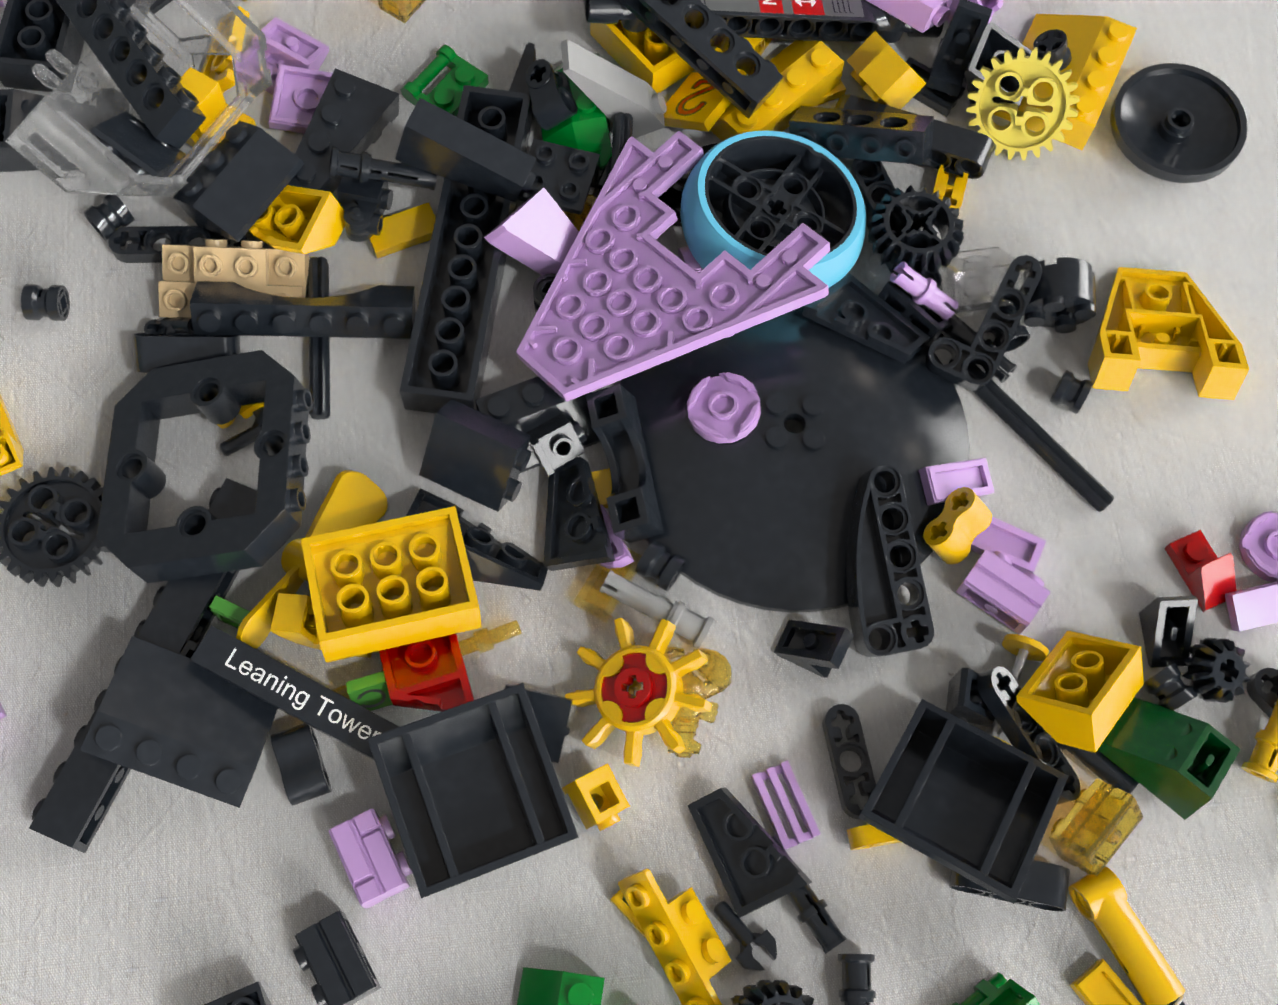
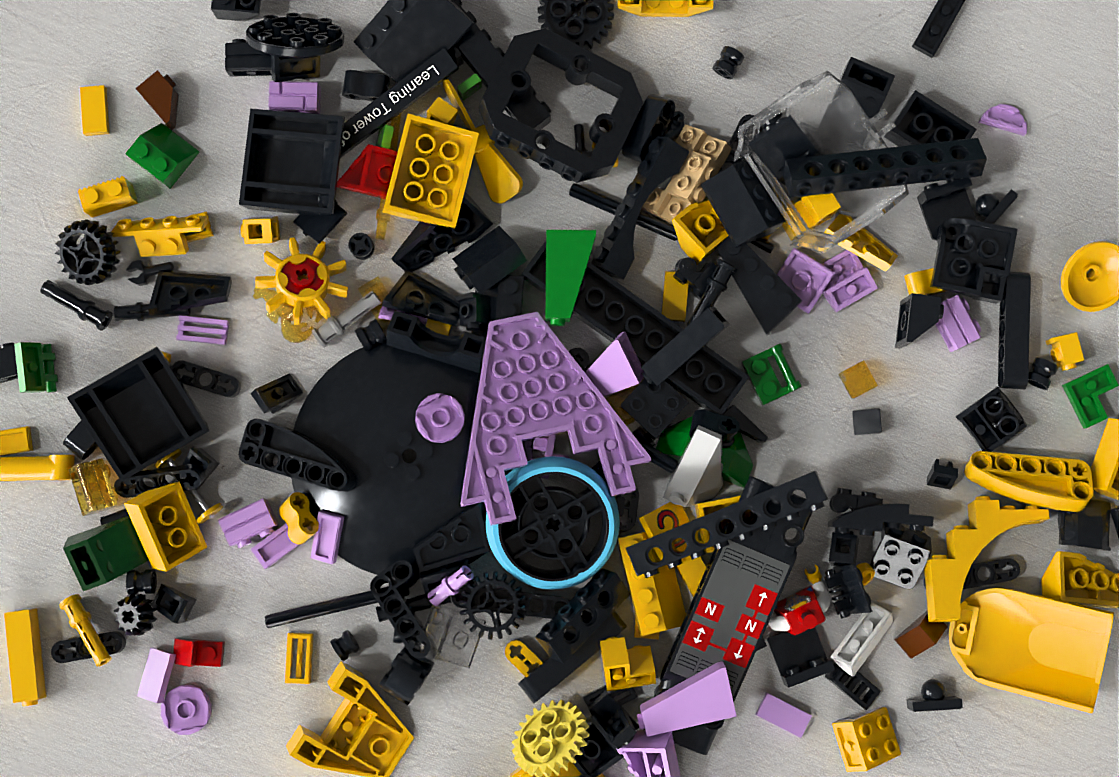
camera: 120 degrees right, 15 degrees up
(278, 891) = (295, 44): none -> black bracket
(444, 338) = (565, 268): none -> green slope
(542, 636) = (357, 243): none -> black wheel
(1098, 455) = (289, 657): none -> yellow tile

